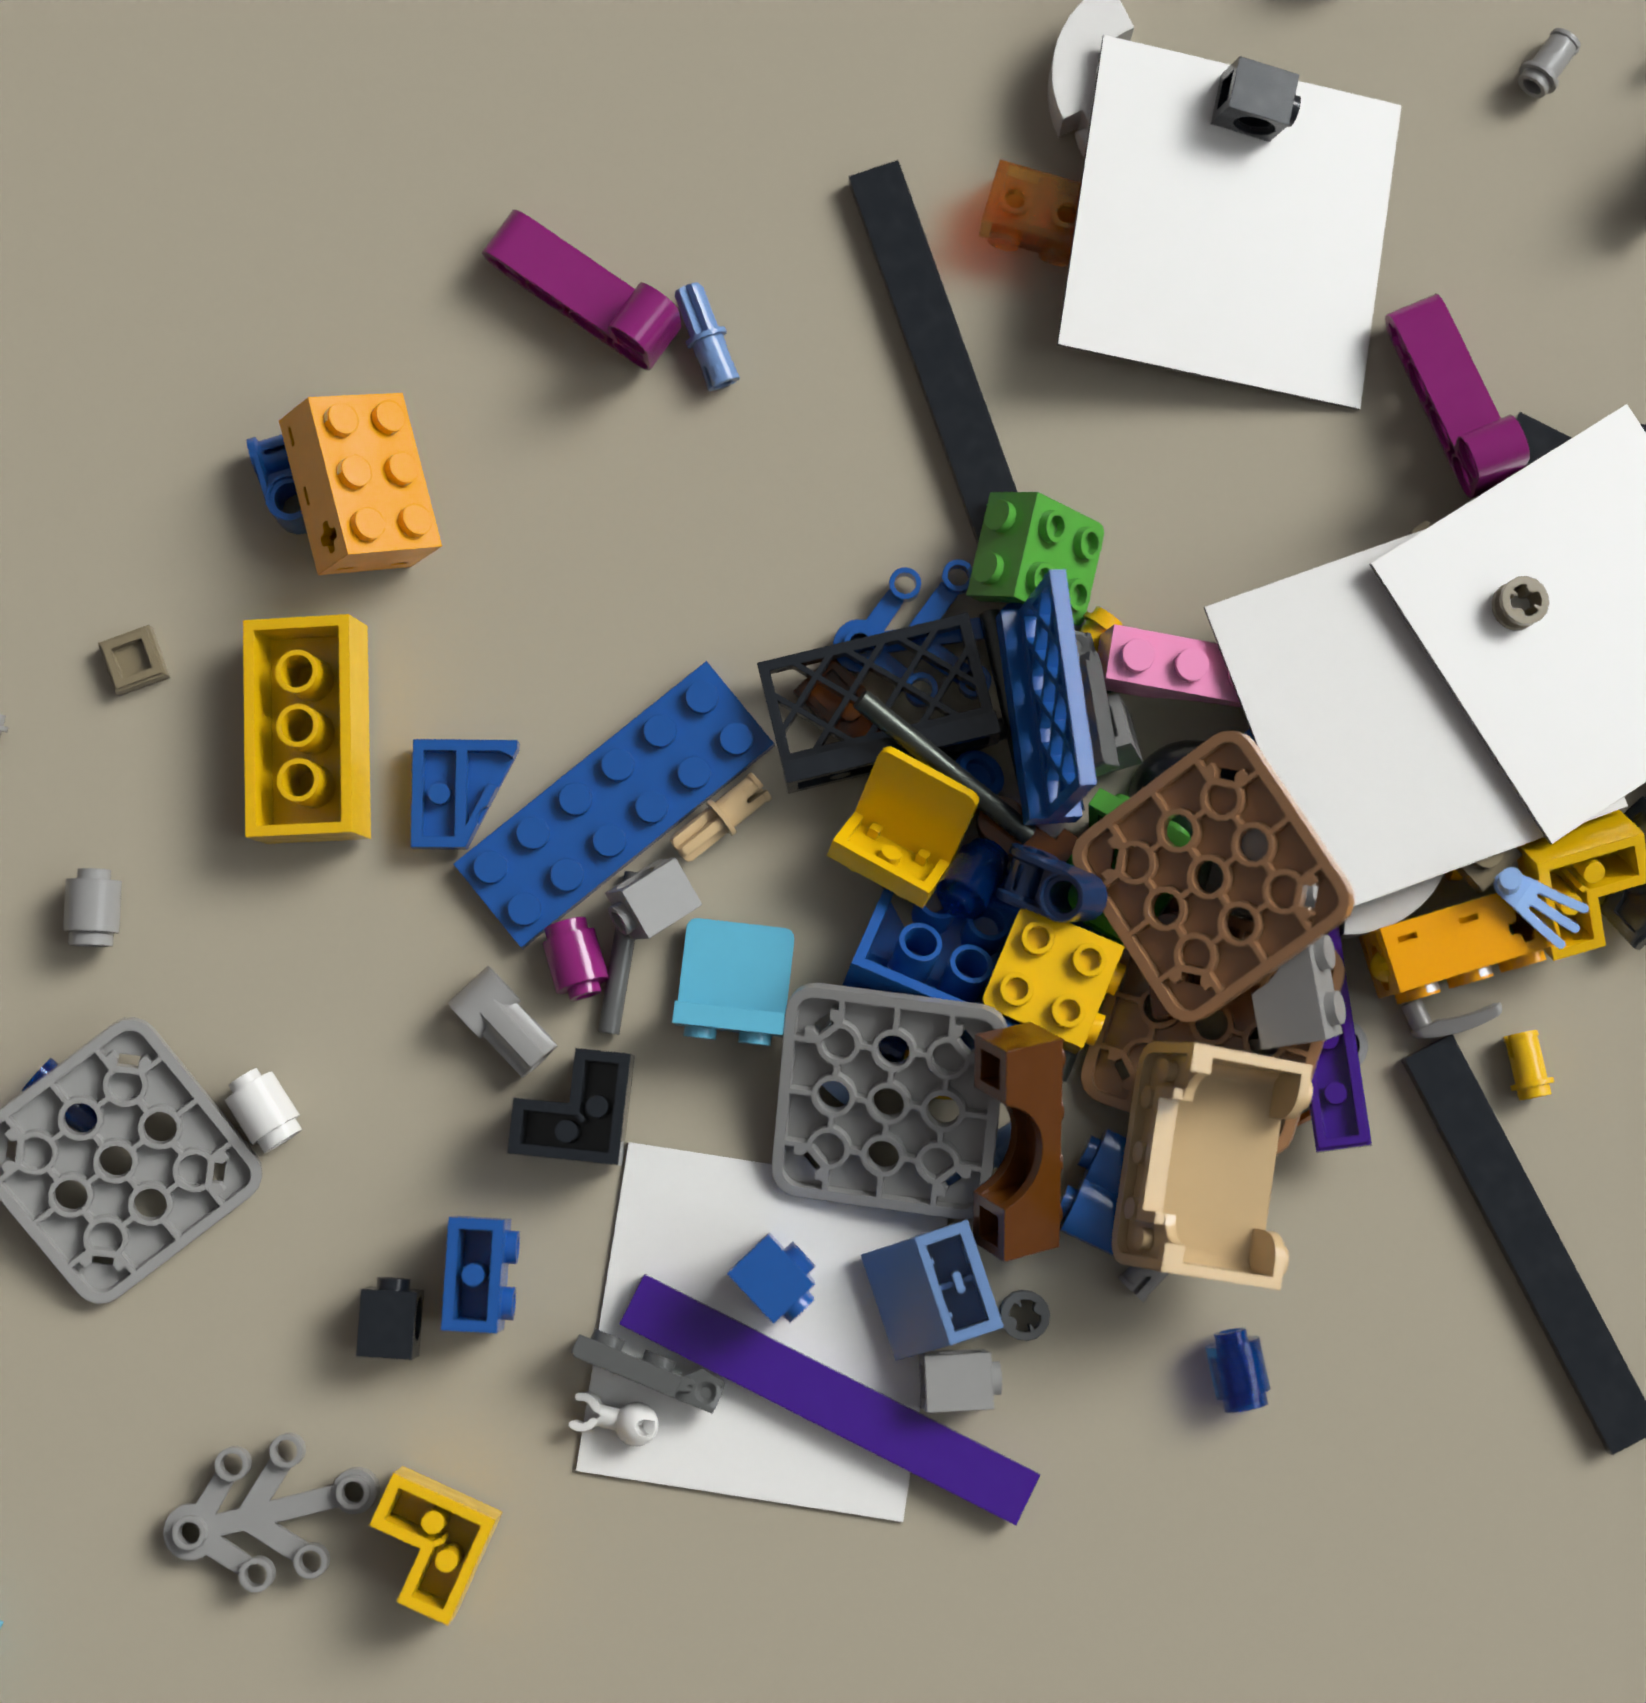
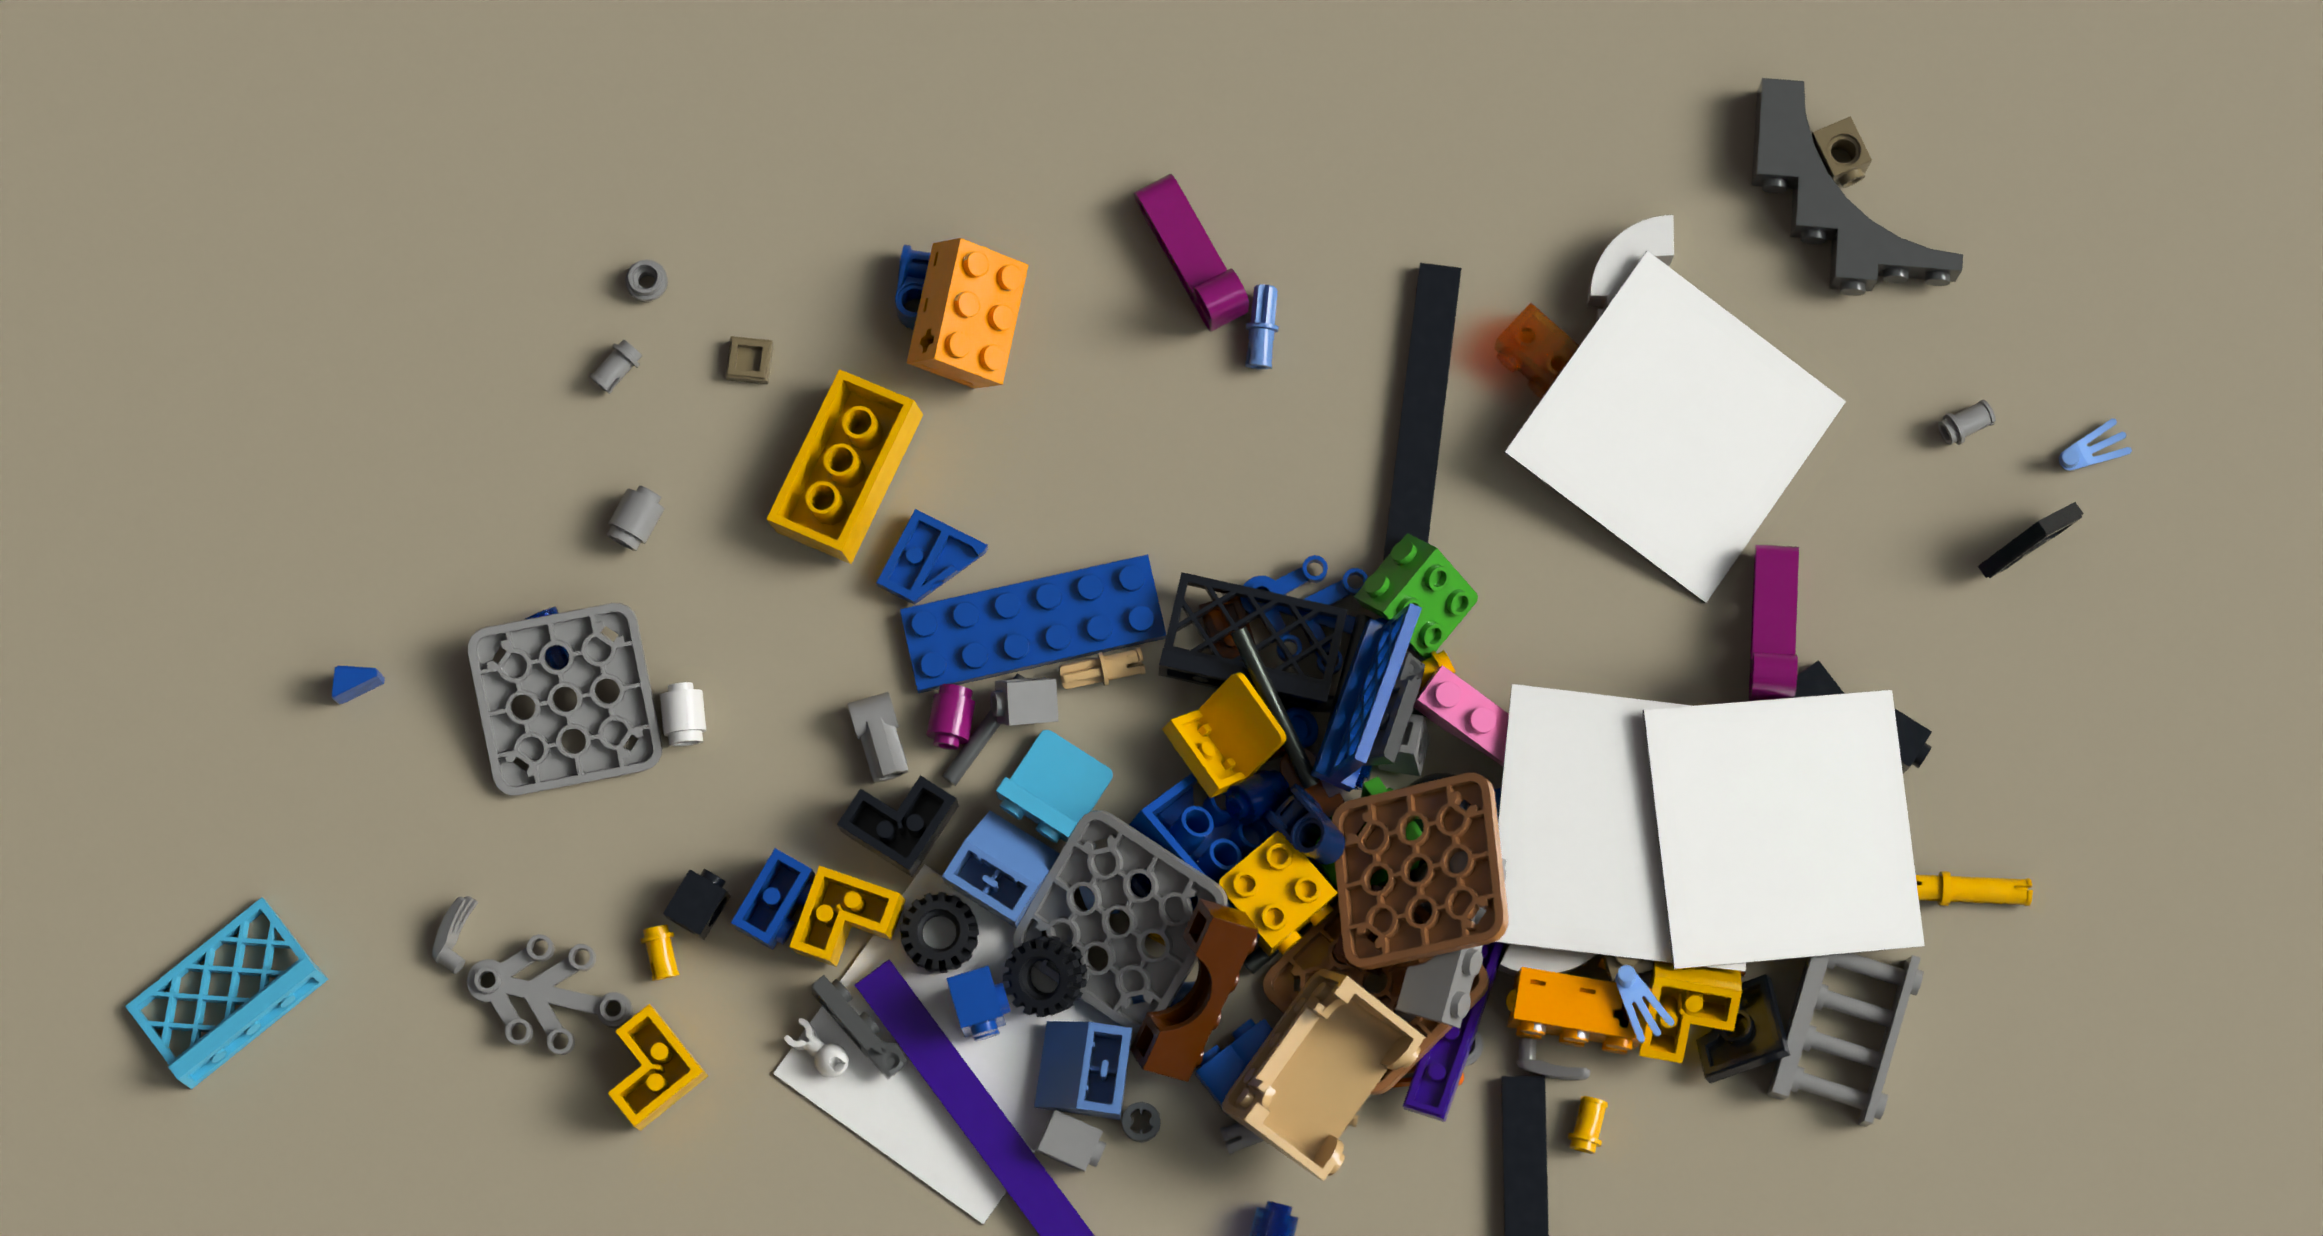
camera: 30 degrees right, 5 degrees down
(118, 1498) = (449, 933): none -> light grey piece
(375, 1398) = (660, 952): none -> yellow pin
(551, 1250) = (838, 904): none -> yellow brick
(652, 1209) = (920, 914): none -> black tyre
(721, 1104) = (1000, 868): none -> medium blue slope
(823, 1235) = (1020, 976): none -> black tyre
(1256, 99) = (1734, 348): brick -> none
(1523, 588) = (1726, 797): dark tan bush -> none

